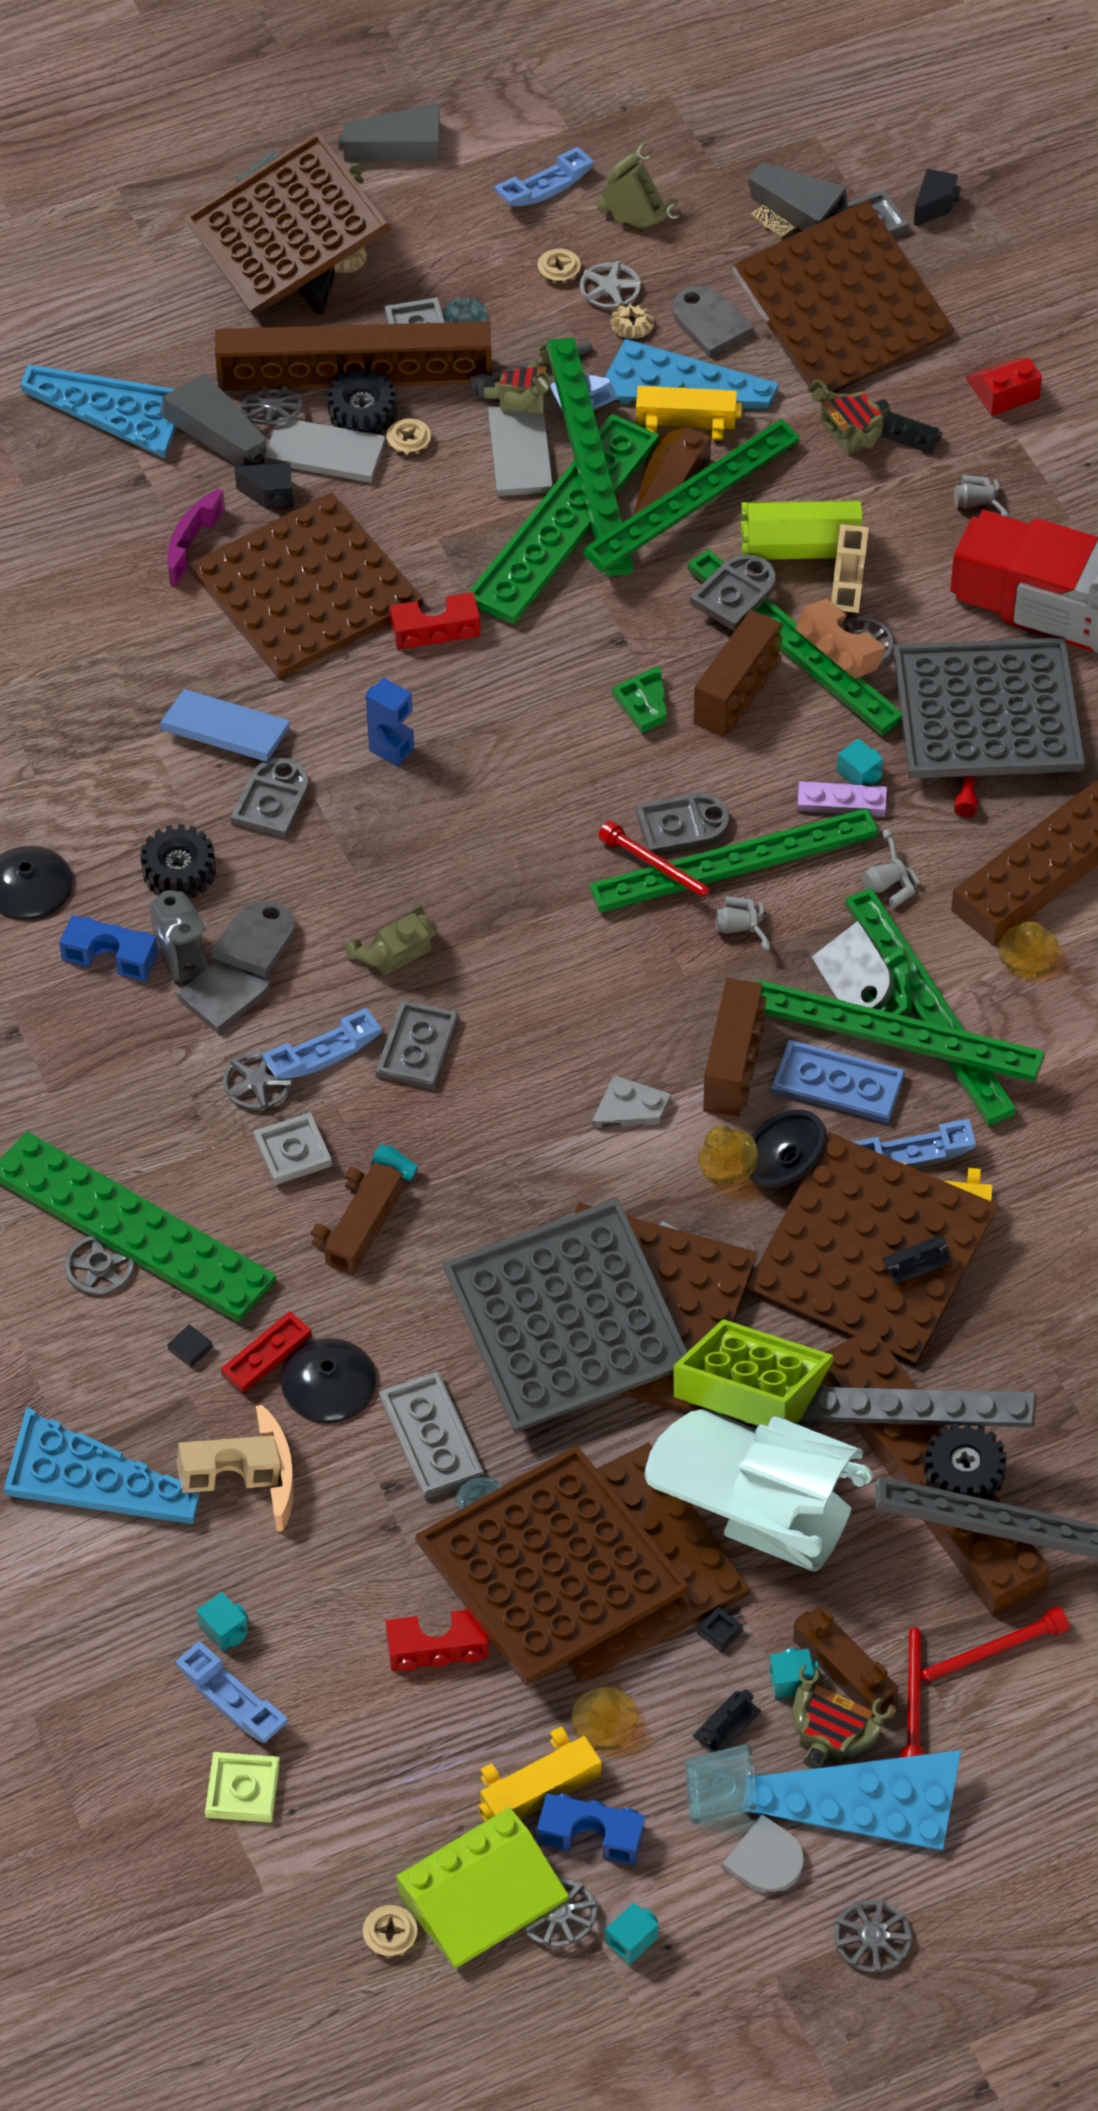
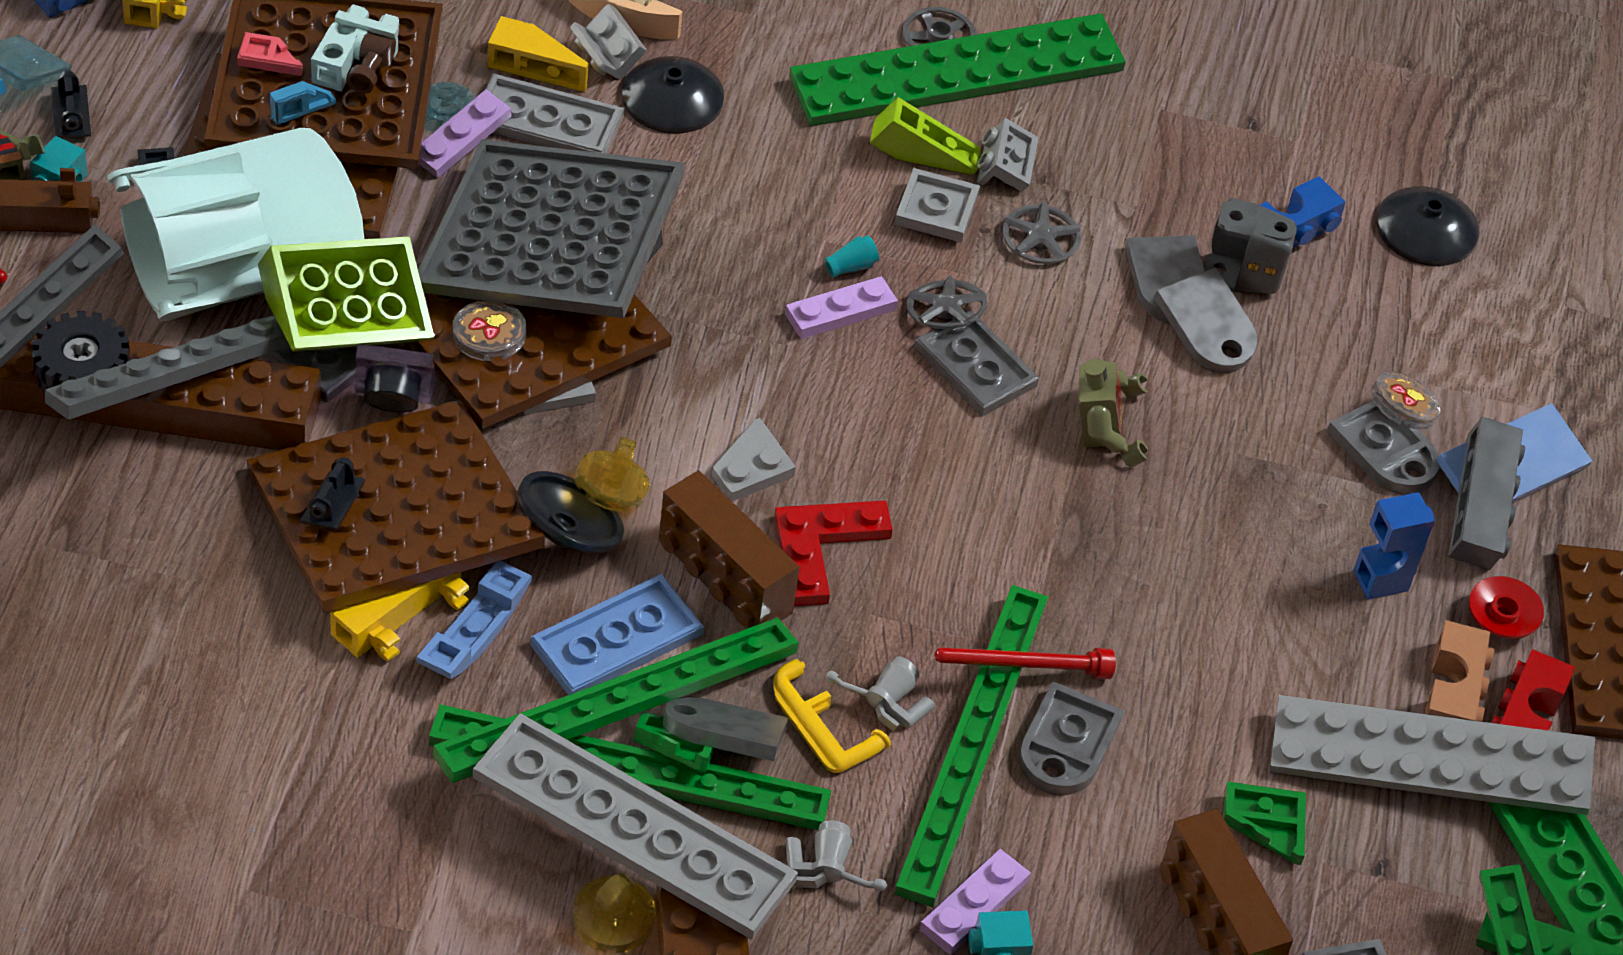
camera: 120 degrees right, 5 degrees down
(178, 847) = (1368, 310): black bush -> none
(190, 1345) = (796, 34): black tile -> none
(202, 1140) = (1008, 155): none -> light grey bracket
(228, 800) = (1406, 400): none -> clear tile
(238, 1193) = (922, 140): none -> lime slope
(266, 1352) = (738, 67): red plate -> none
(282, 713) = (1487, 493): none -> dark grey brick
(324, 1050) = (1033, 284): medium blue slope -> none
(325, 1440) = (609, 43): none -> light grey bracket
(362, 668) = (1506, 607): none -> red dish
(363, 1218) = (811, 199): reddish brown brick -> none
(383, 1086) = (947, 304): none -> flat silver wheel
(384, 1487) = (532, 53): none -> yellow slope
(442, 1146) = (841, 307): none -> lavender plate
(468, 654) = (1462, 656): none -> nougat arch
(498, 1461) = (463, 133): none -> lavender plate
(519, 1544) = (356, 38): none -> light aqua hips
(526, 642) = (1433, 754): none -> light grey plate
(578, 1600) = (267, 54): none -> coral tile
(605, 1718) = (166, 47): clear yellow tile -> none
(608, 1539) = (298, 101): none -> dark azure tile
(653, 1044) = (807, 526): none -> red plate
(687, 1292) = (489, 330): none -> tile
(777, 1312) = (394, 378): none -> piece
(804, 945) = (813, 730): none -> yellow piece
(990, 940) = (636, 825): none -> light grey plate

